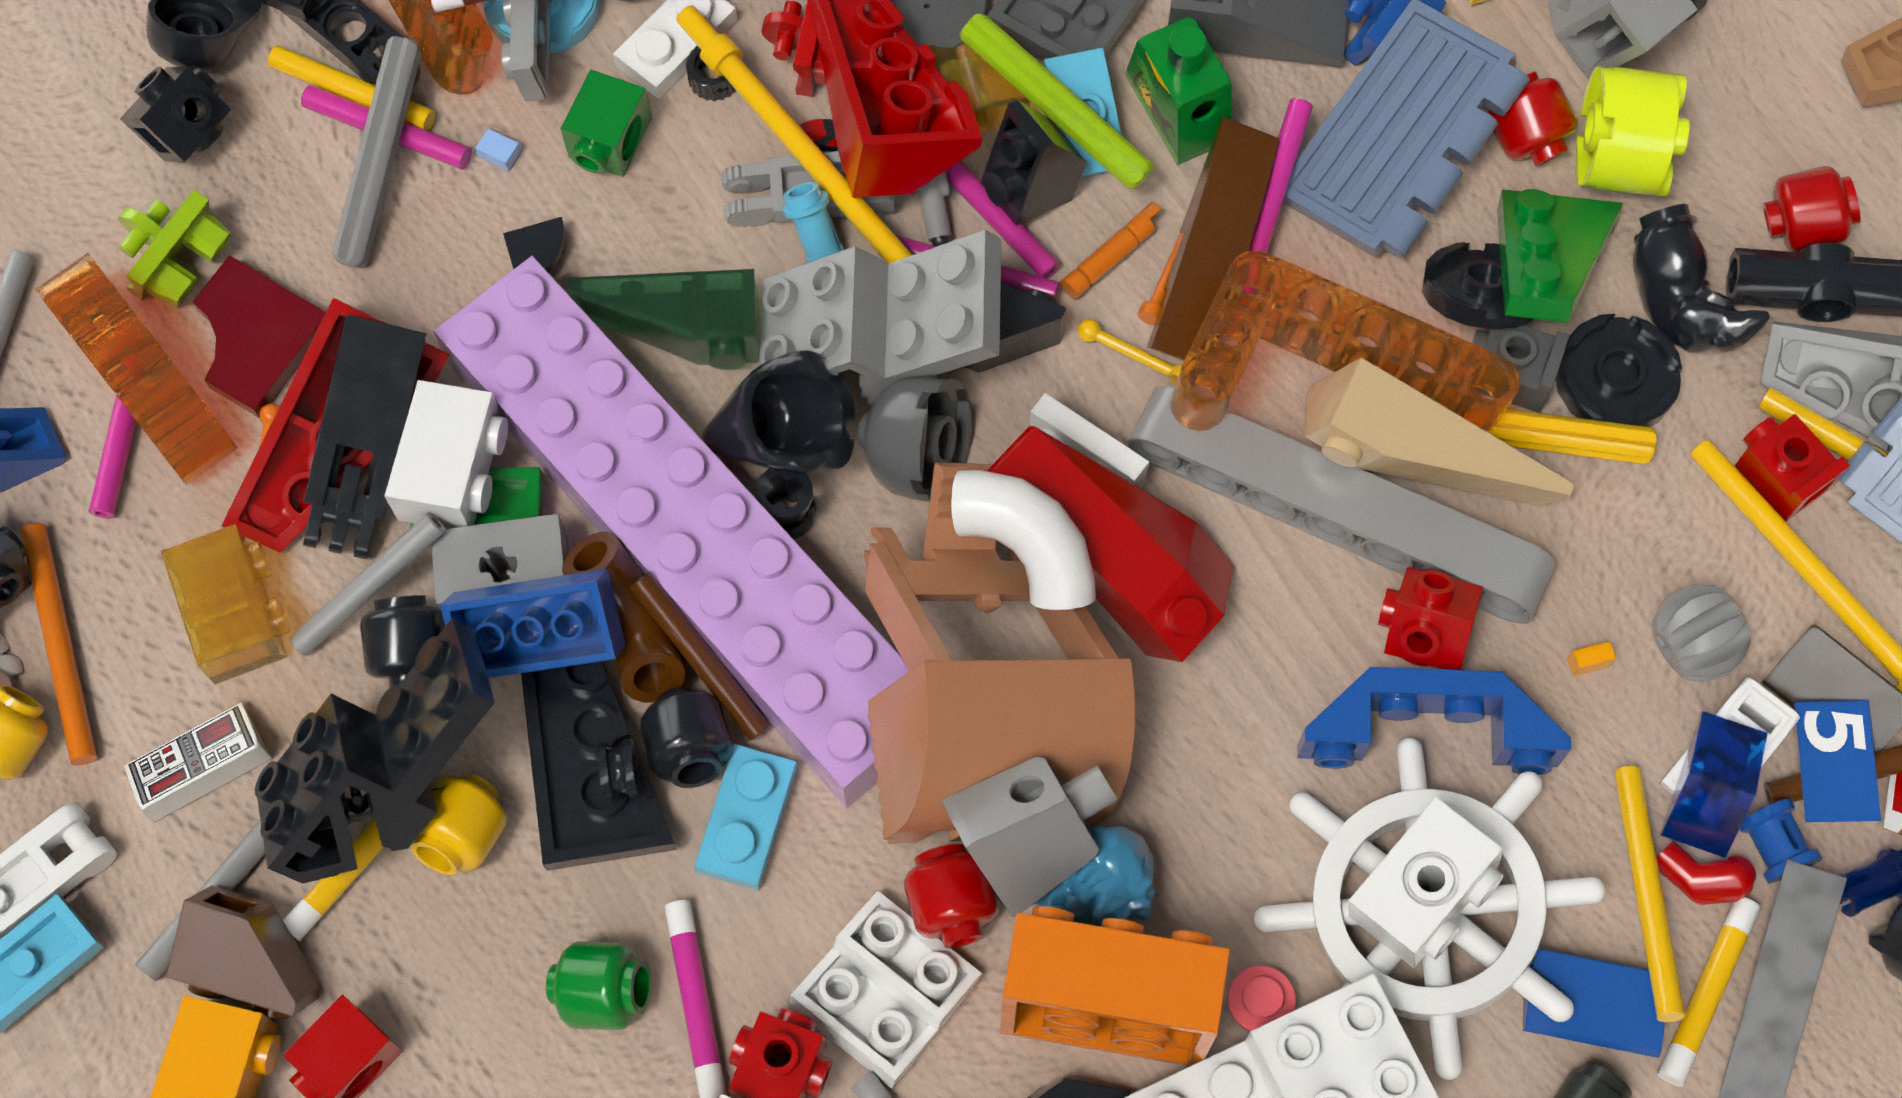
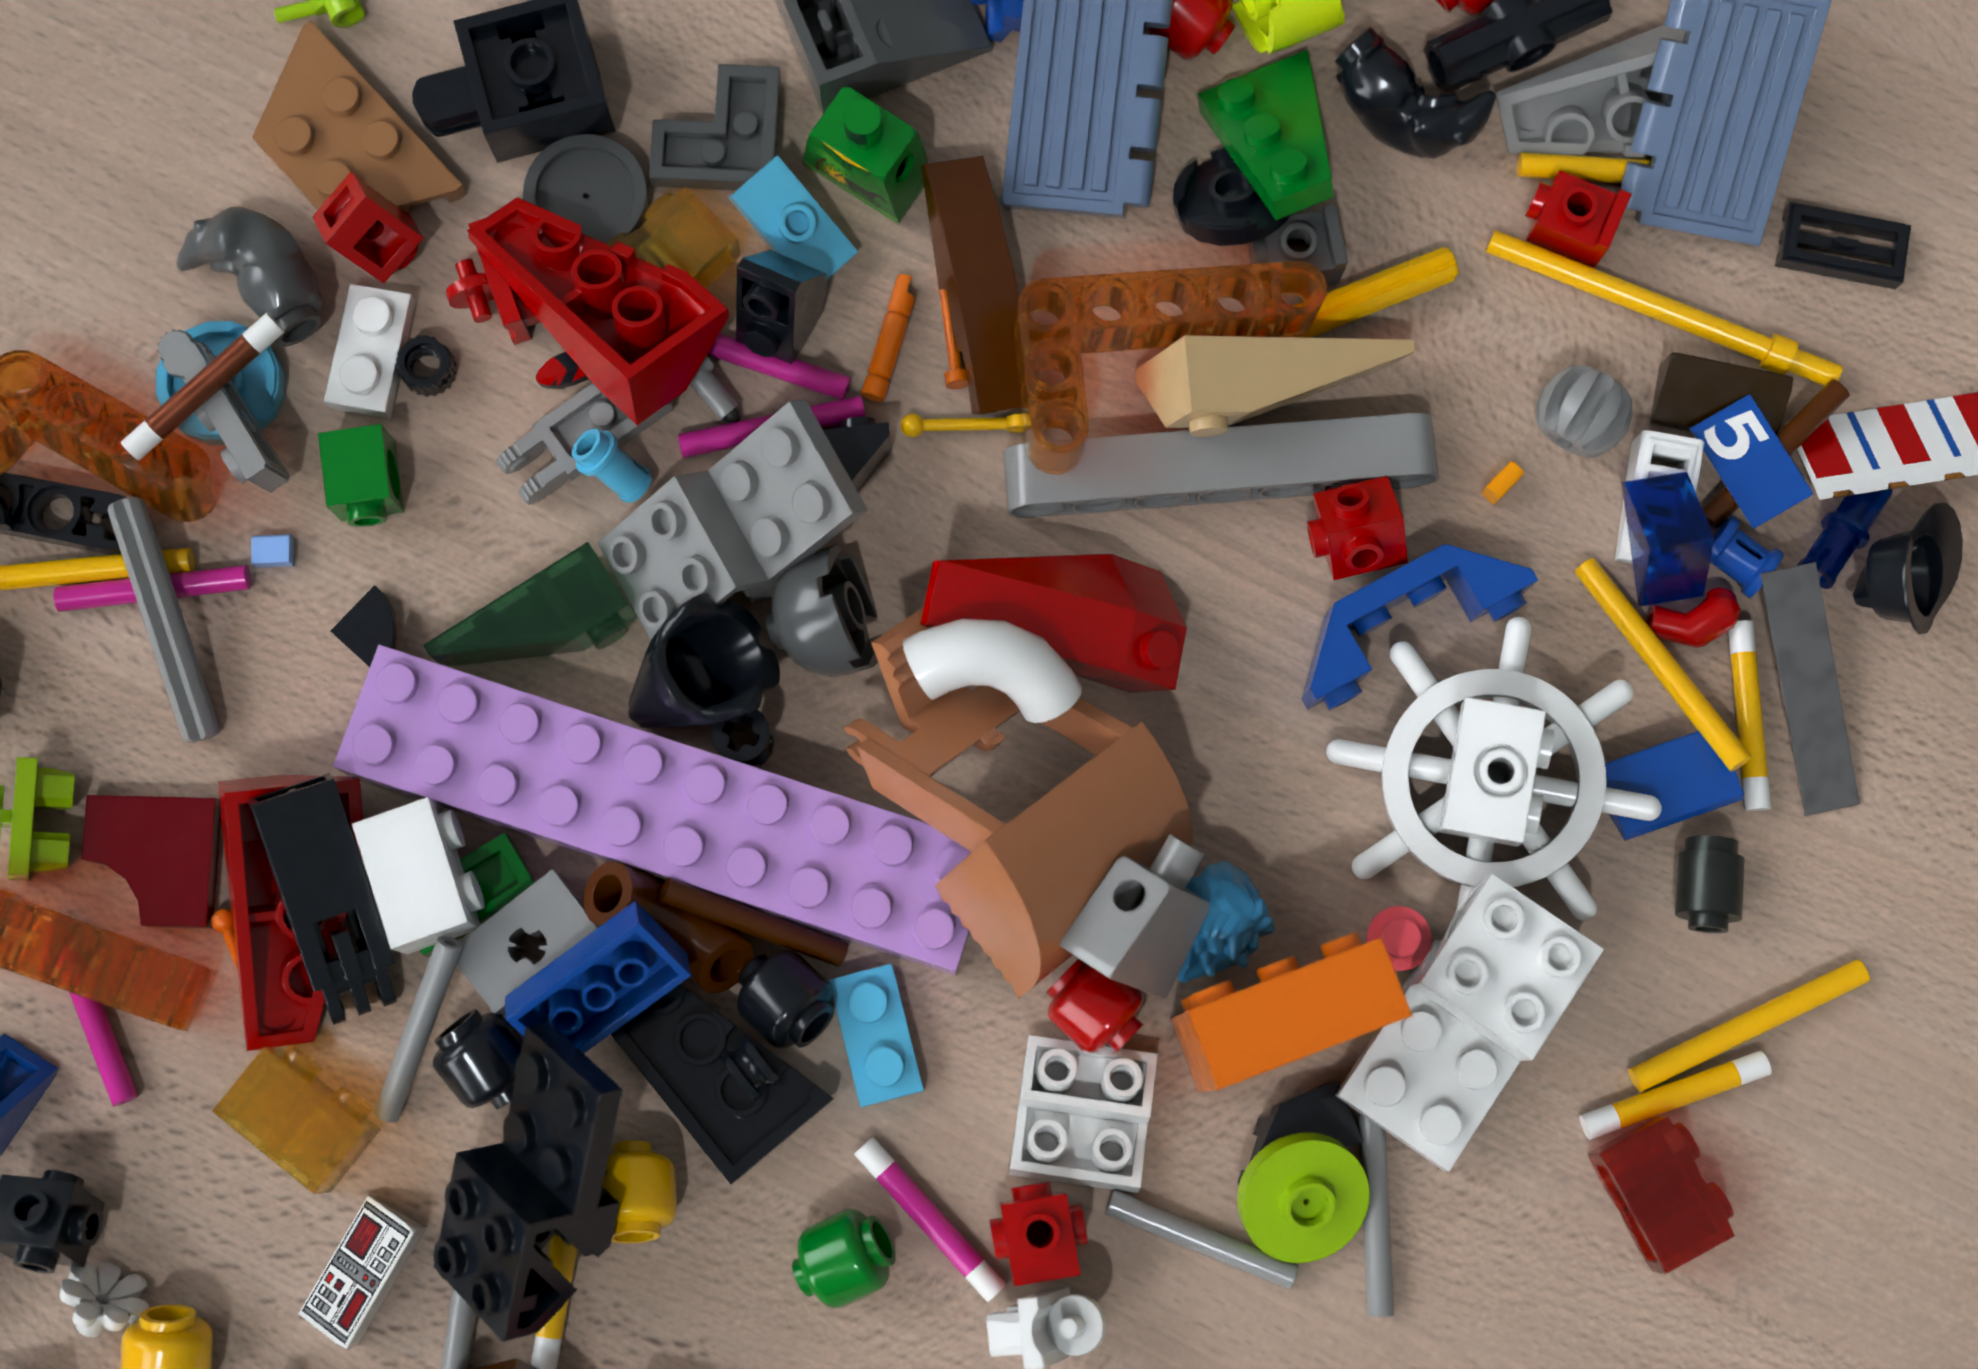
camera: 35 degrees left, 10 degrees up
(58, 645) = (165, 1240): orange bar -> none
(725, 60) = (435, 353): yellow bar -> none
(1056, 101) = (765, 230): lime axle -> none
(1088, 440) = (959, 536): white plate -> none
(1289, 144) = (991, 148): dark pink bar -> none
(1619, 371) = (1389, 208): black tile -> none

